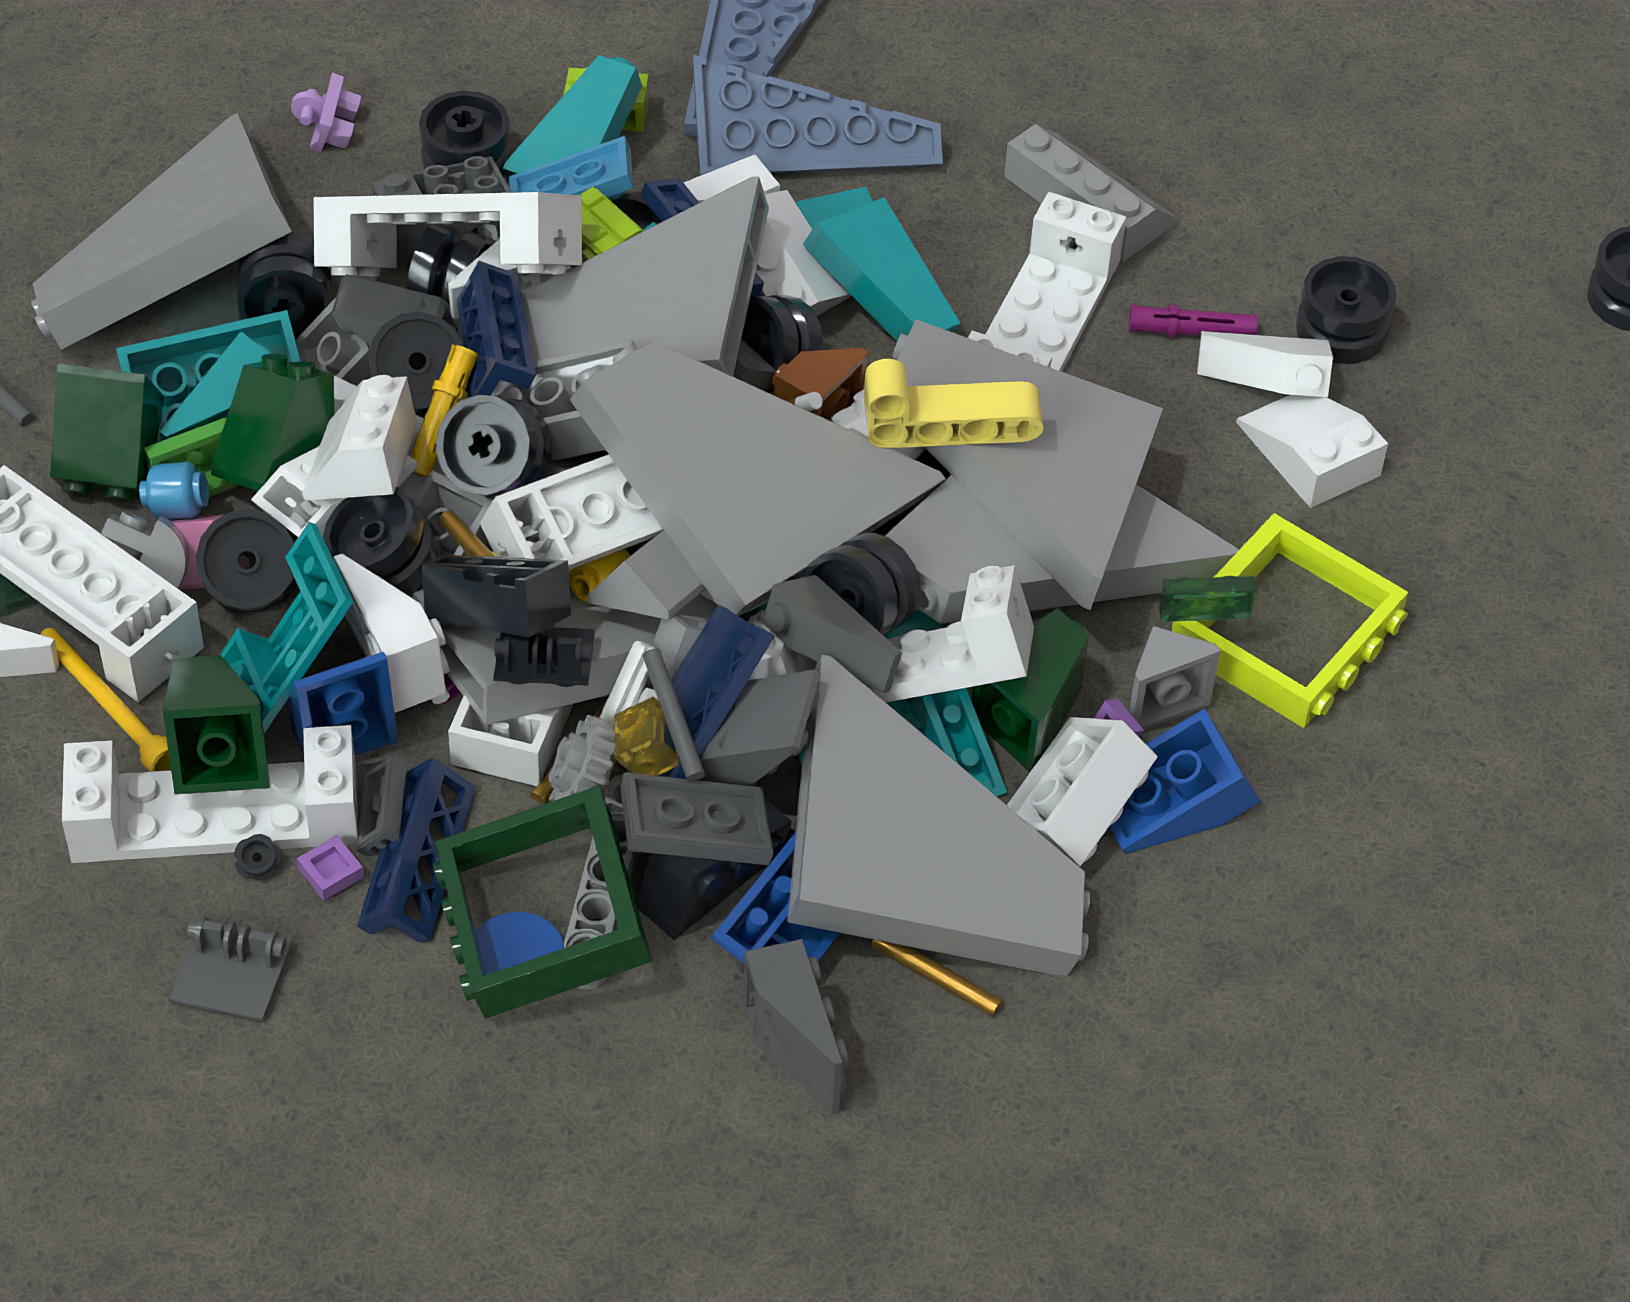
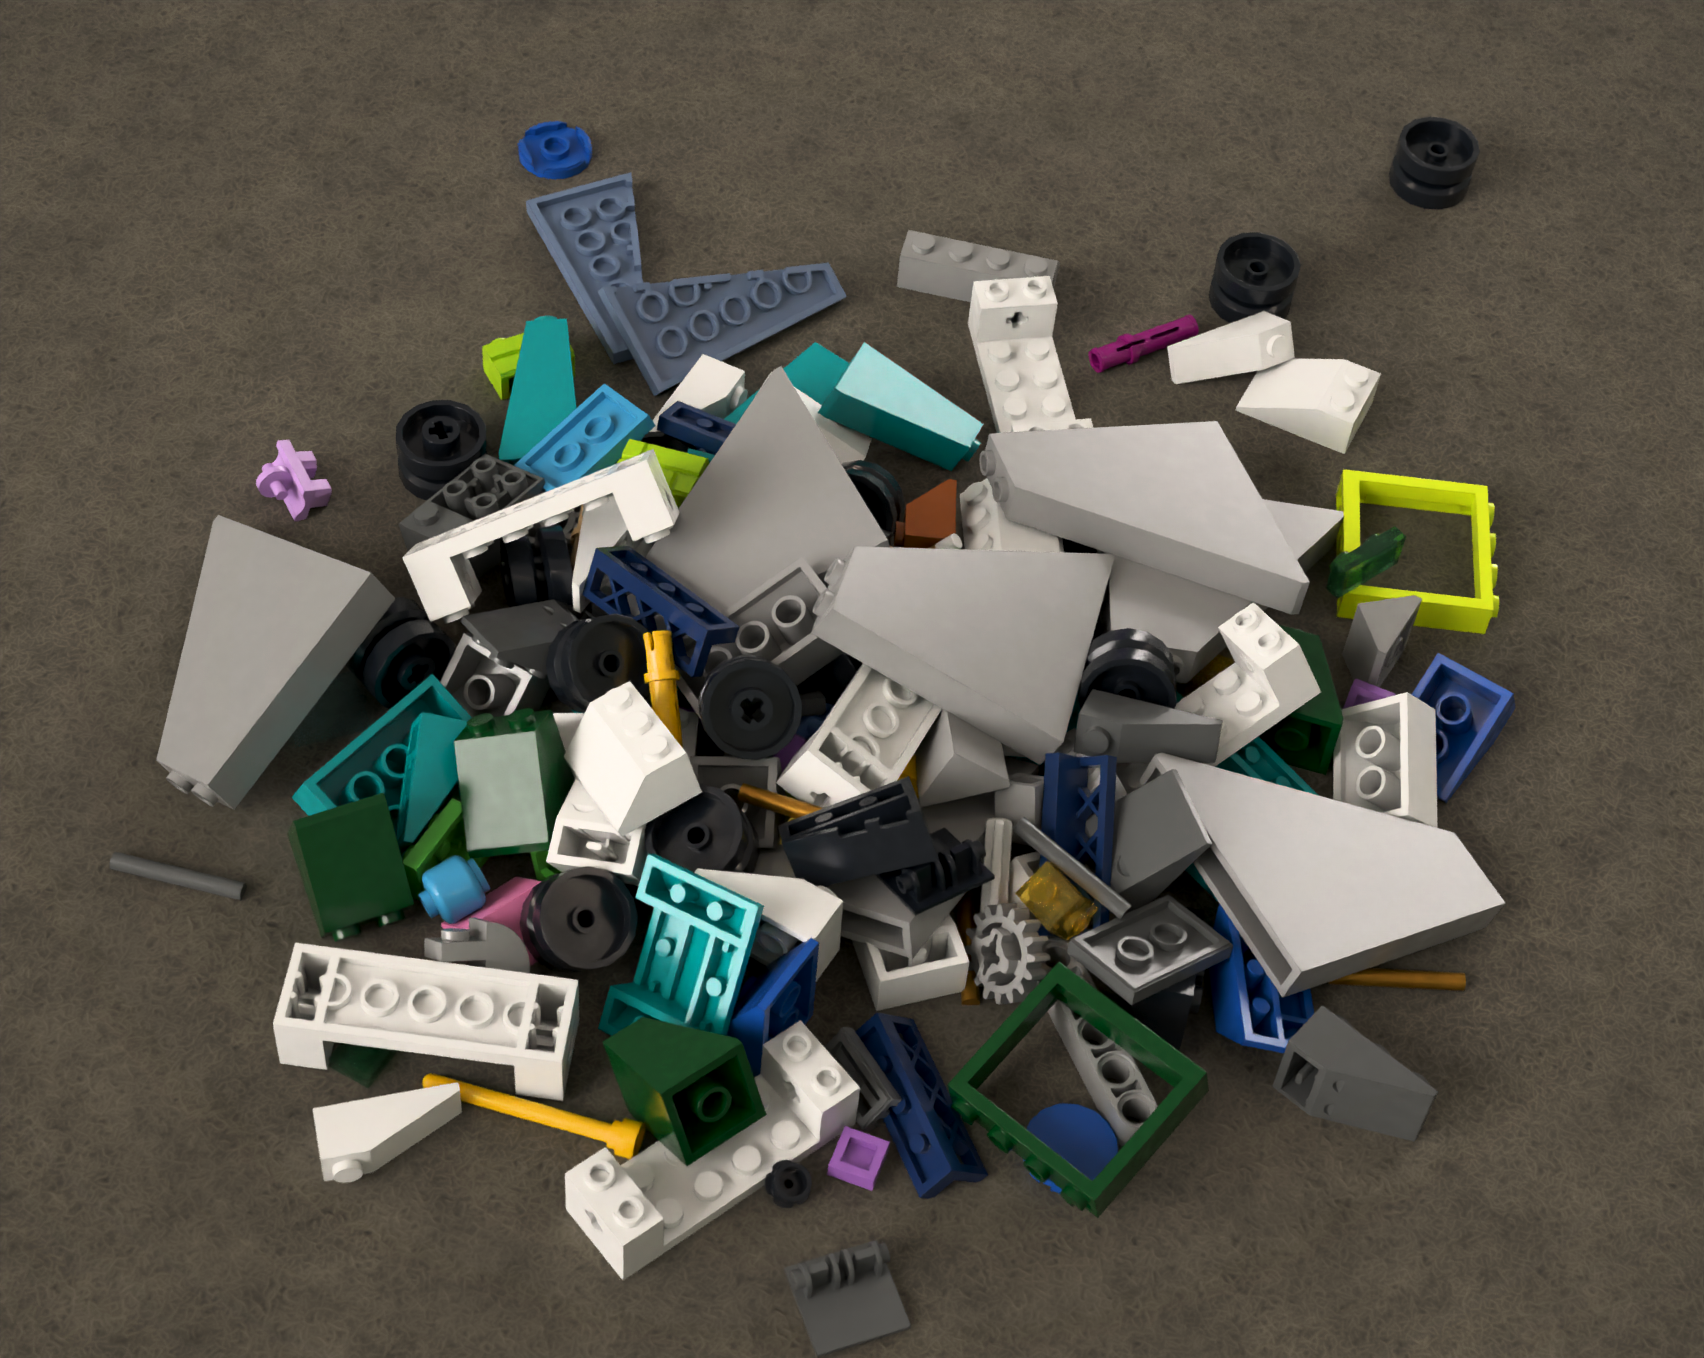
camera: 35 degrees left, 0 degrees up
(946, 413) = (1069, 514): light yellow beam -> none

